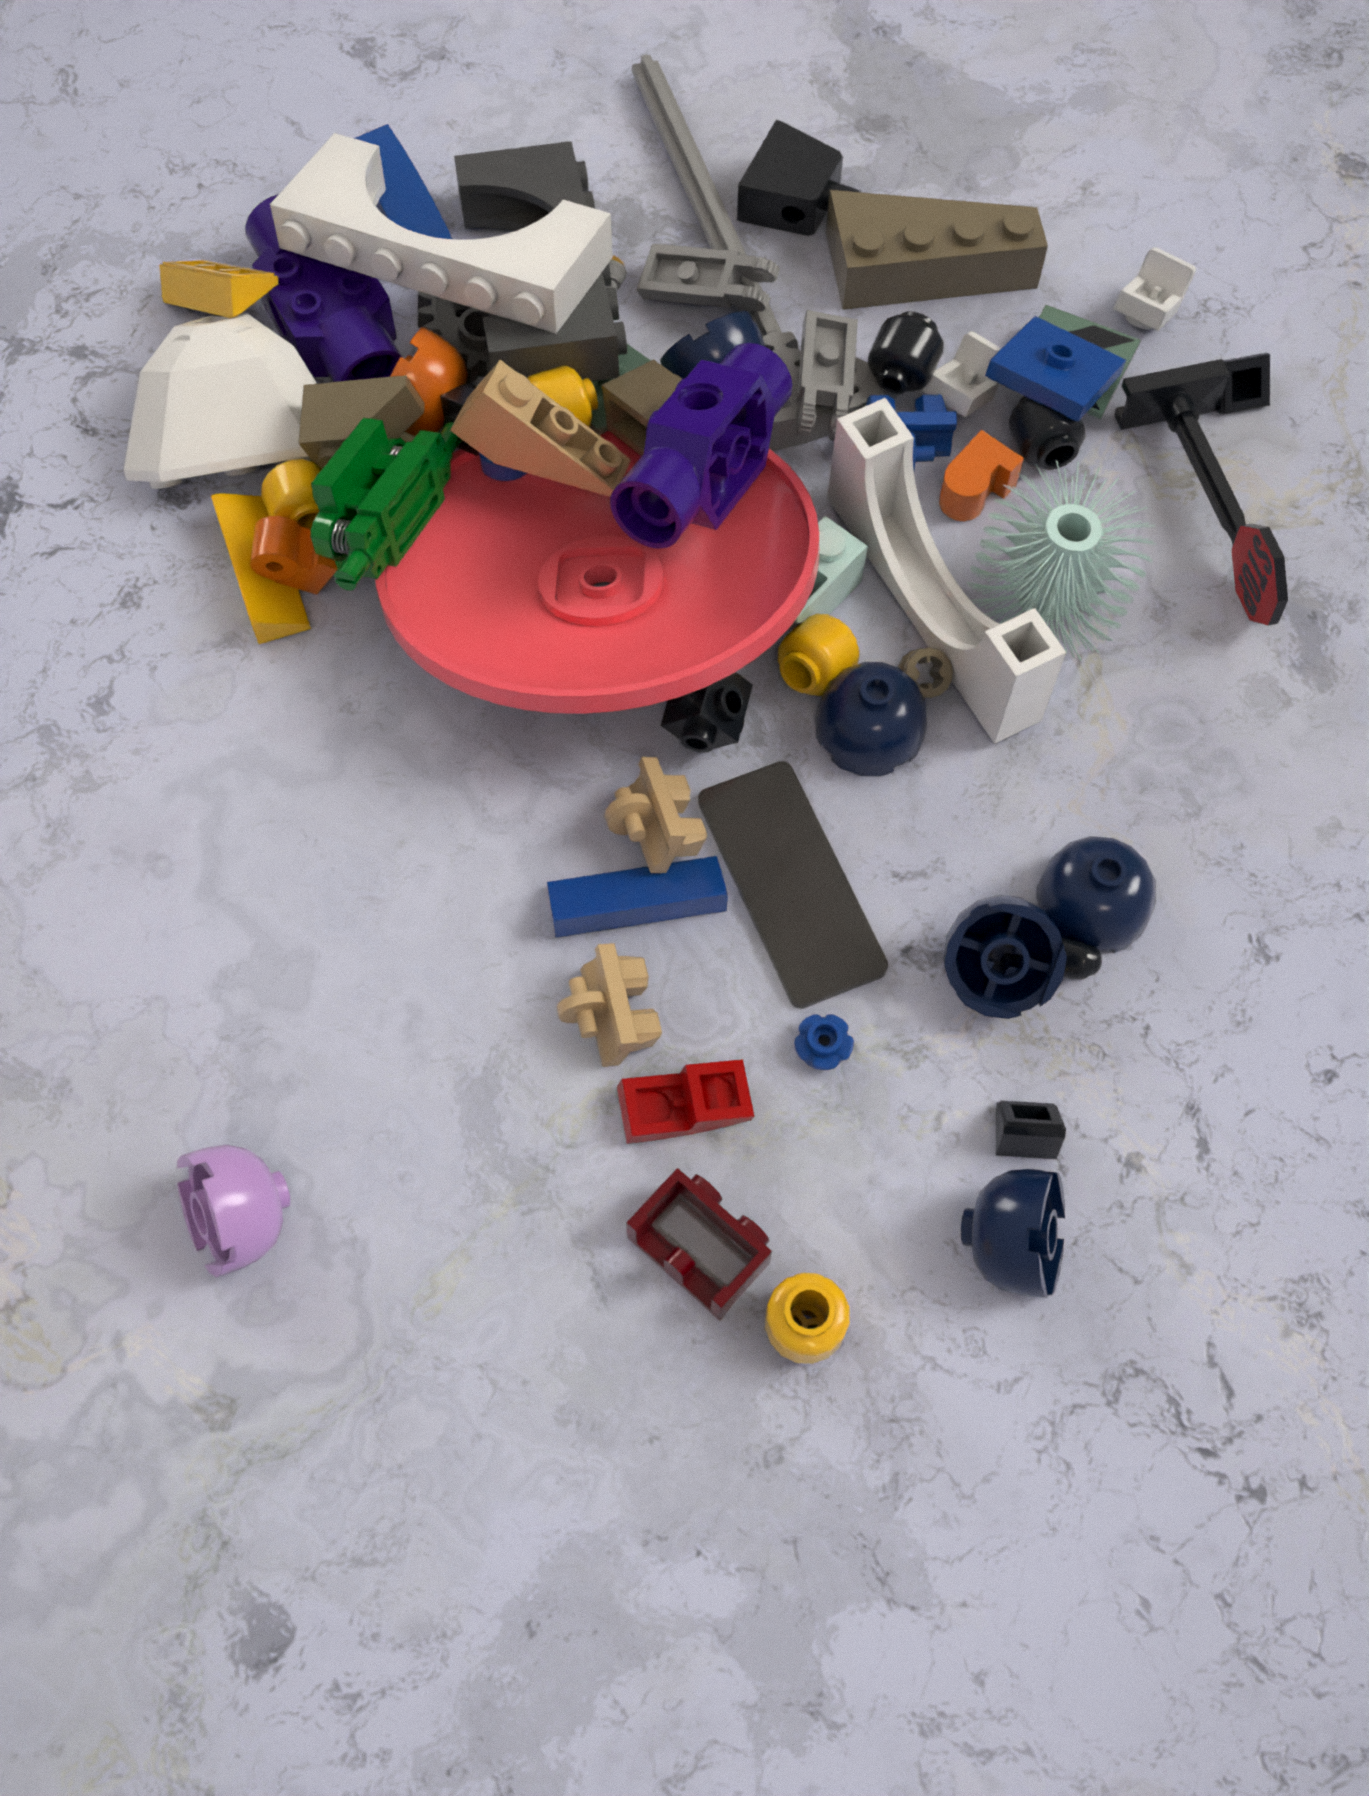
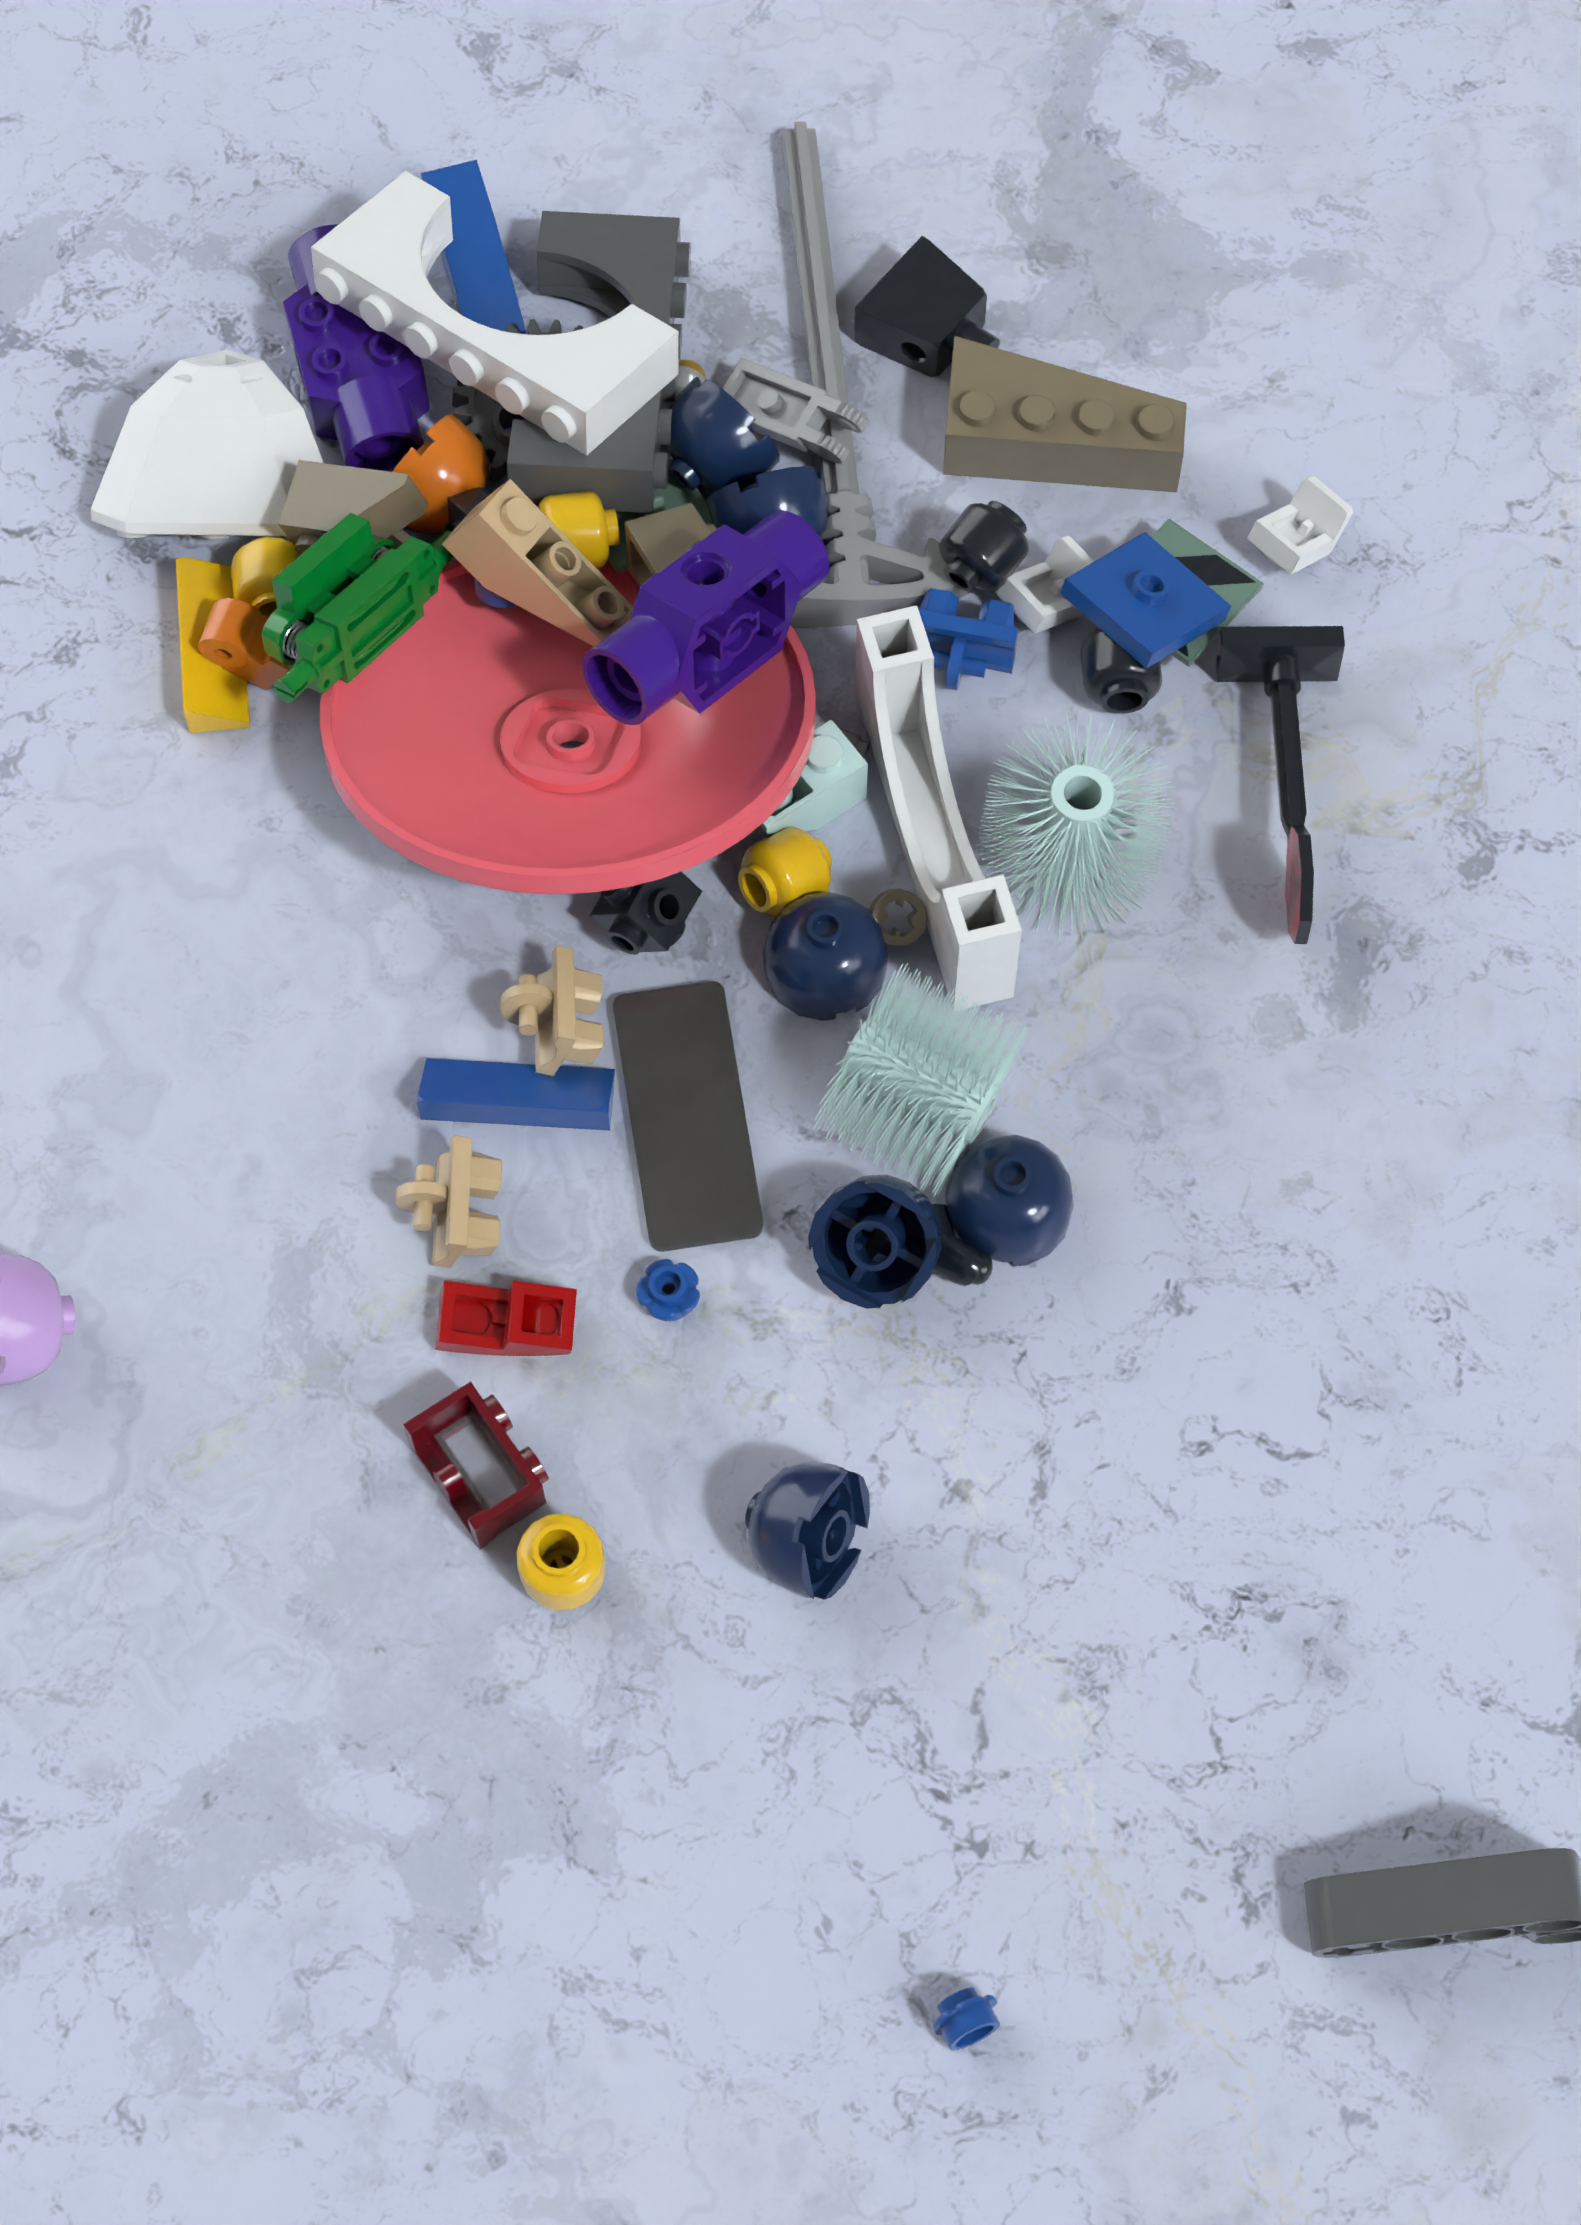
camera: 15 degrees right, 0 degrees up
(213, 286) = (237, 315): yellow slope -> none
(657, 306) = (715, 440): none -> dark blue cylinder
(825, 368) = (887, 546): light grey hinge -> none
(975, 473) = (1023, 701): orange leg -> none
(1006, 805) = (920, 1079): none -> light aqua piece
(1028, 1129) = (856, 1429): black slope -> none
(1247, 383) = (1371, 657): black slope -> none
(1308, 1668) = (966, 2018): none -> blue plate

